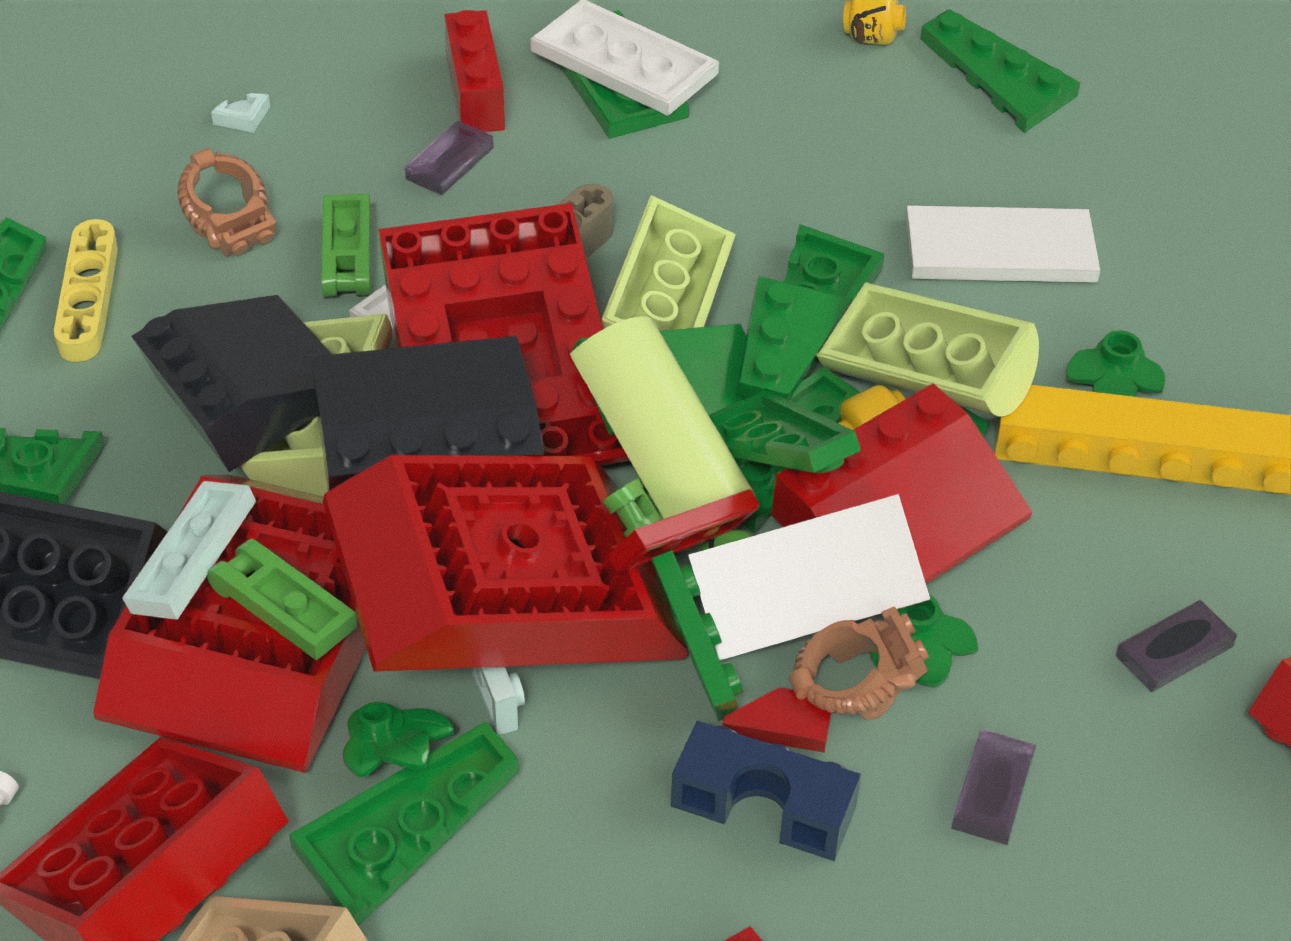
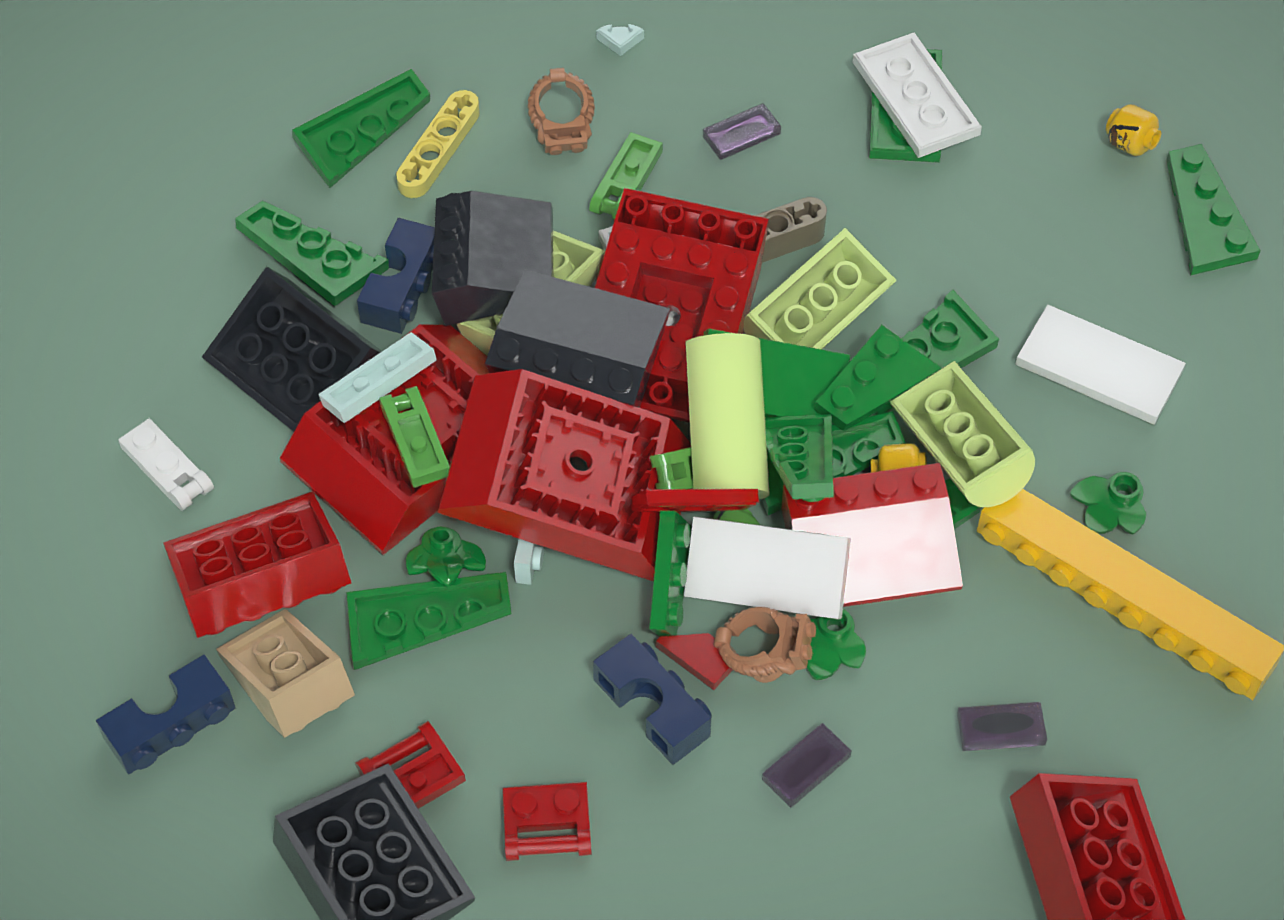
camera: 30 degrees right, 10 degrees up
(132, 472) = (393, 299): none -> dark blue arch
(474, 70) = (797, 66): red brick -> none

